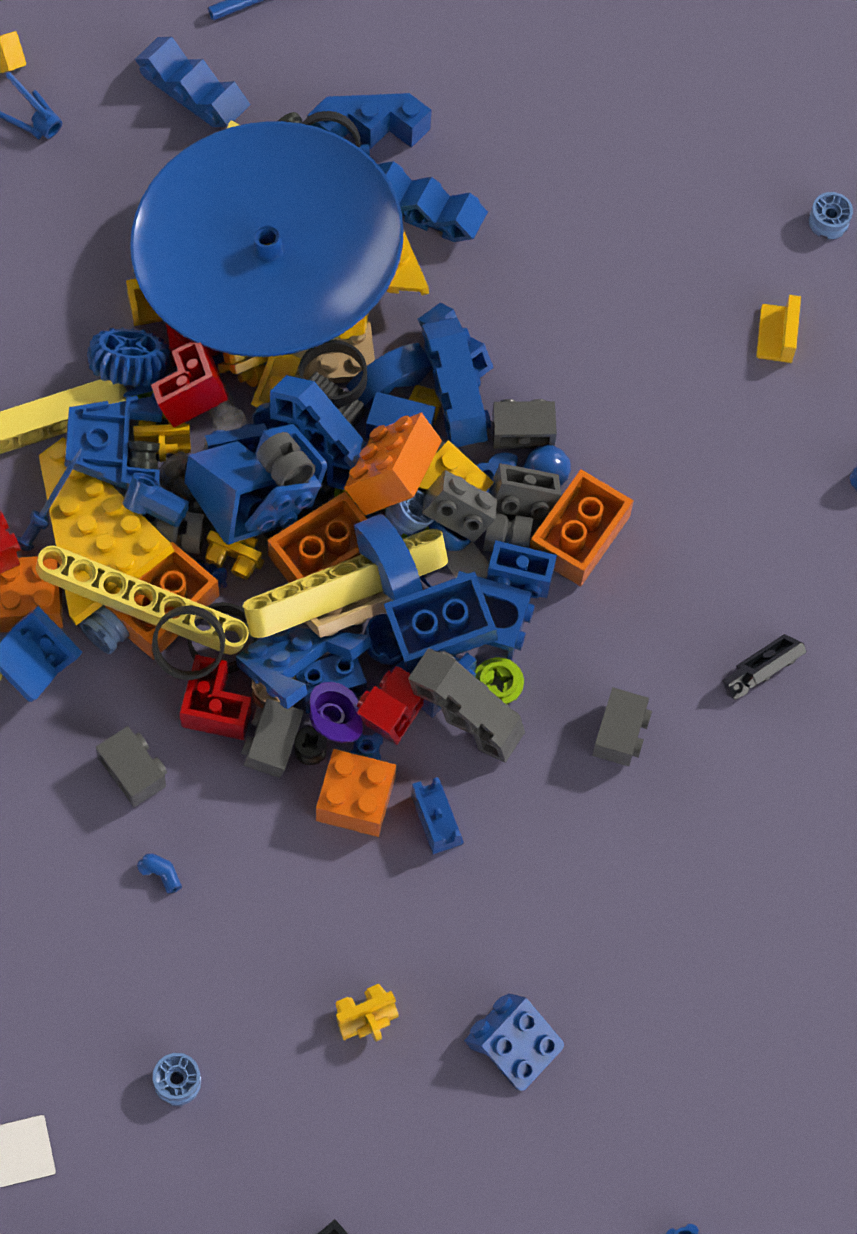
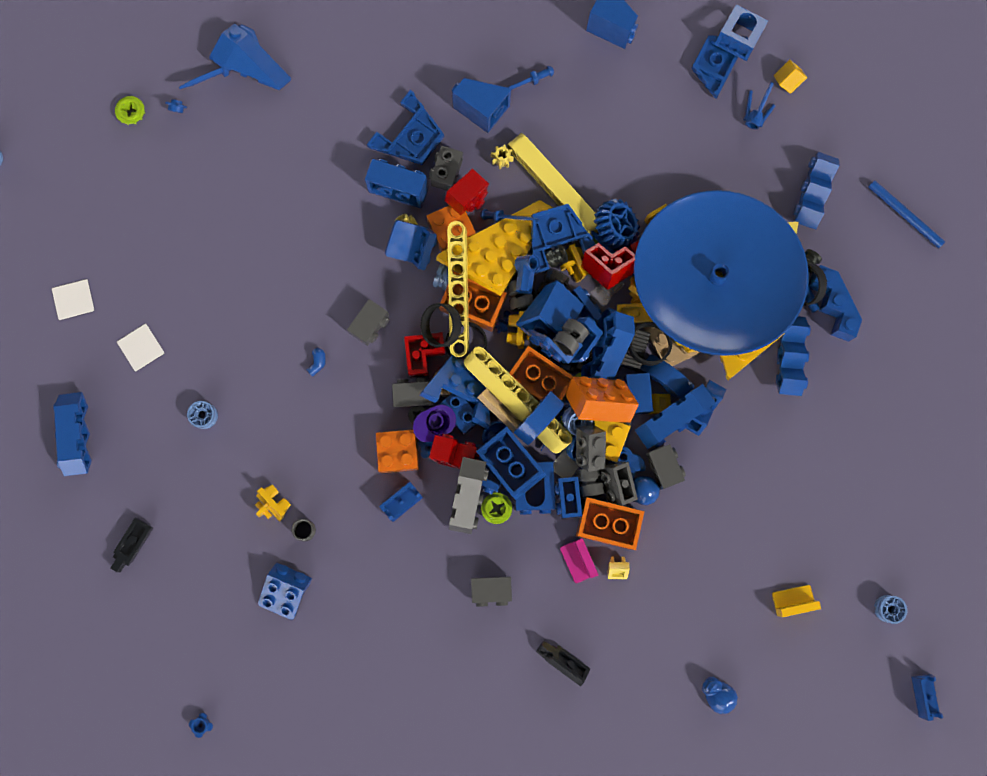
camera: 70 degrees right, 15 degrees up
(428, 960) = (294, 529): none -> dark grey piece
(620, 592) = (578, 560): none -> dark pink panel
(652, 543) = (618, 570): none -> light yellow tile

